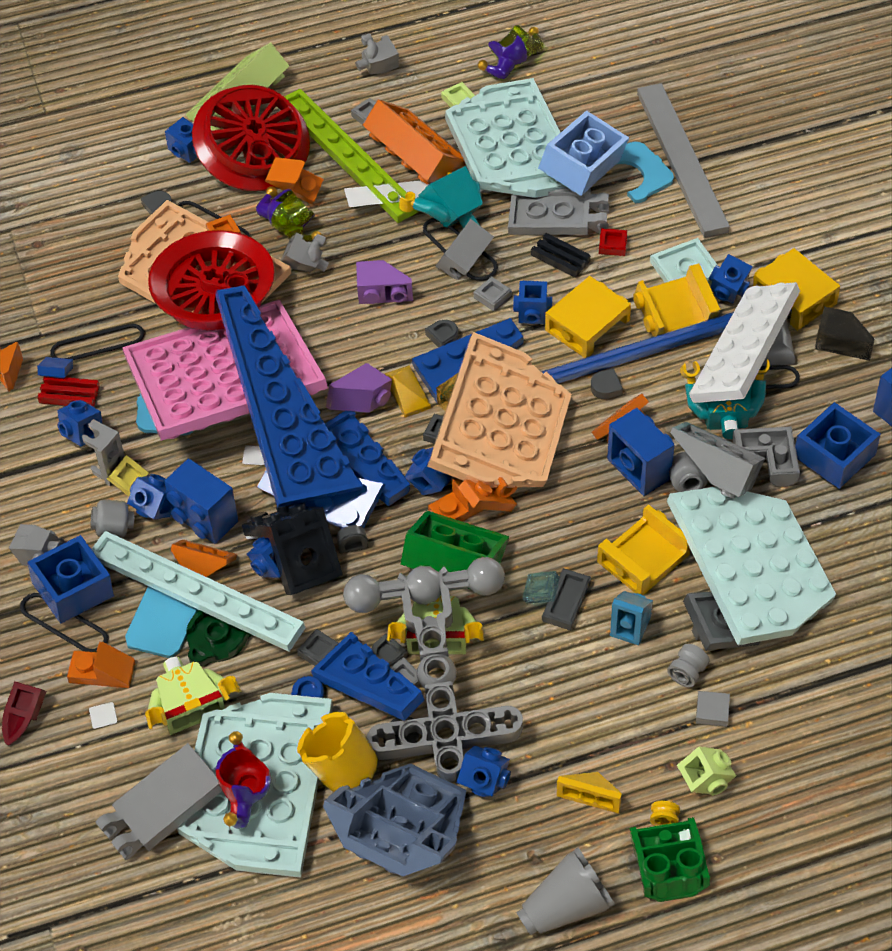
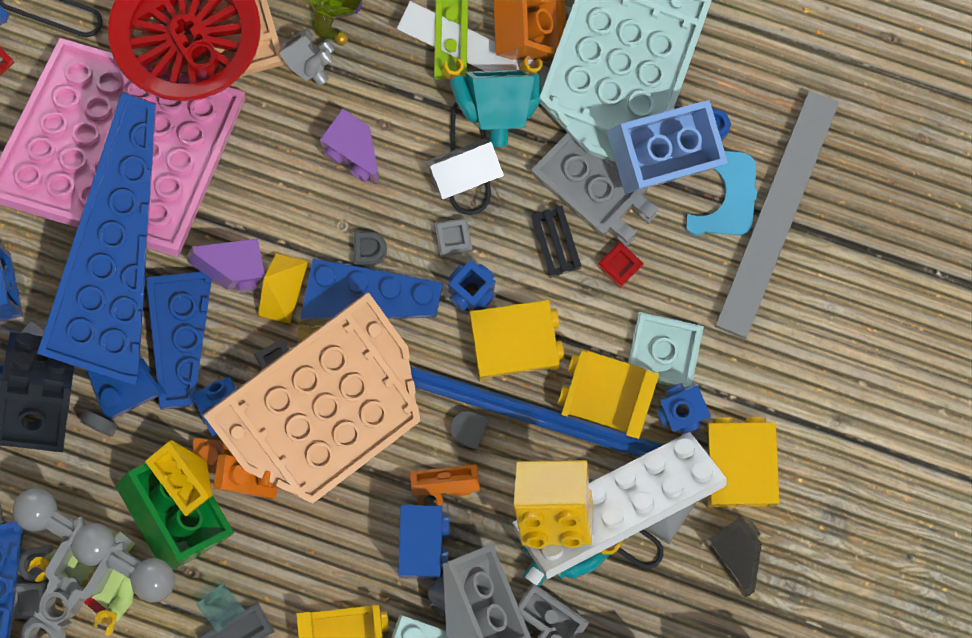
camera: 30 degrees right, 25 degrees up
(444, 515) = (182, 475): none -> yellow slope
(709, 345) = (553, 503): none -> yellow piece

